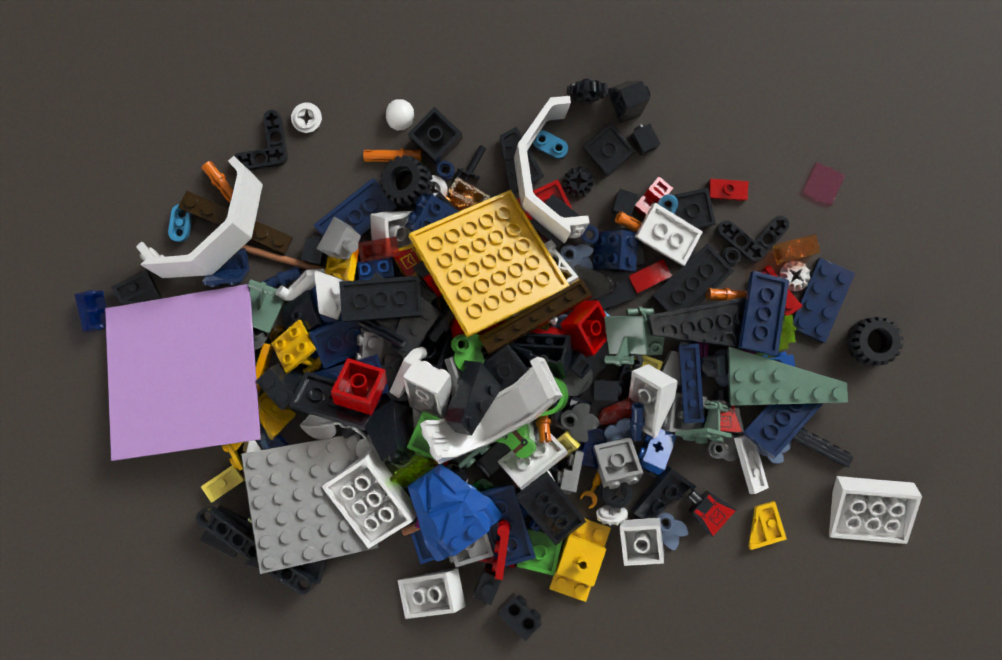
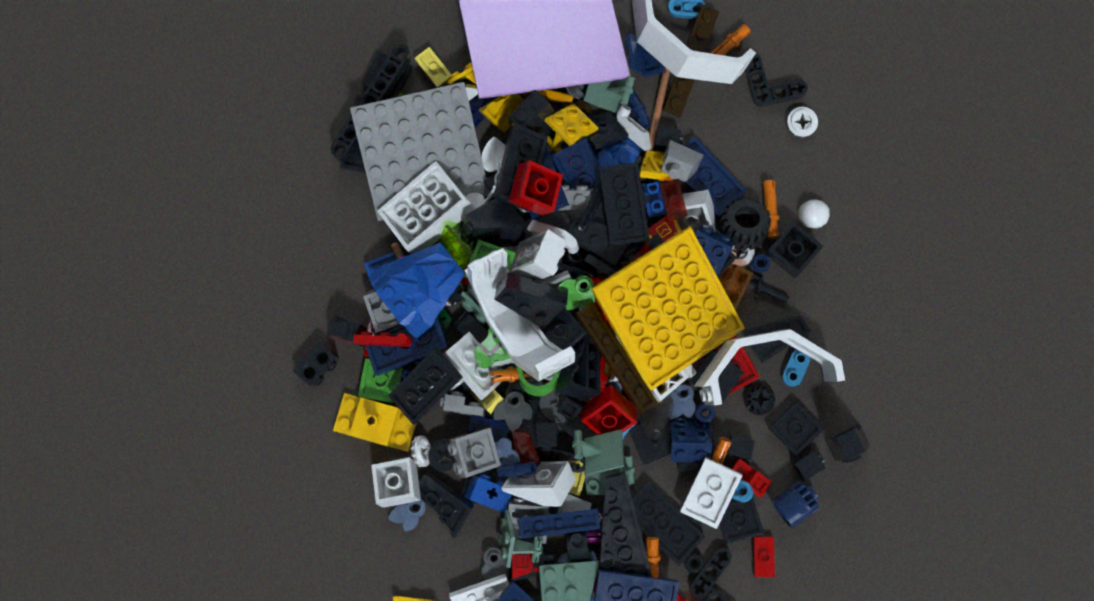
camera: 90 degrees right, 5 degrees down
(328, 295) = (624, 153): white wing -> none
(432, 593) = (335, 276): white slope -> none
(587, 91) = (853, 401): black gear -> none
(596, 482) = (452, 434): light orange piece -> none
(650, 276) = (667, 478): red slope -> none
(681, 154) = (796, 503): none -> dark blue gear
(709, 511) = (430, 552): torso -> none

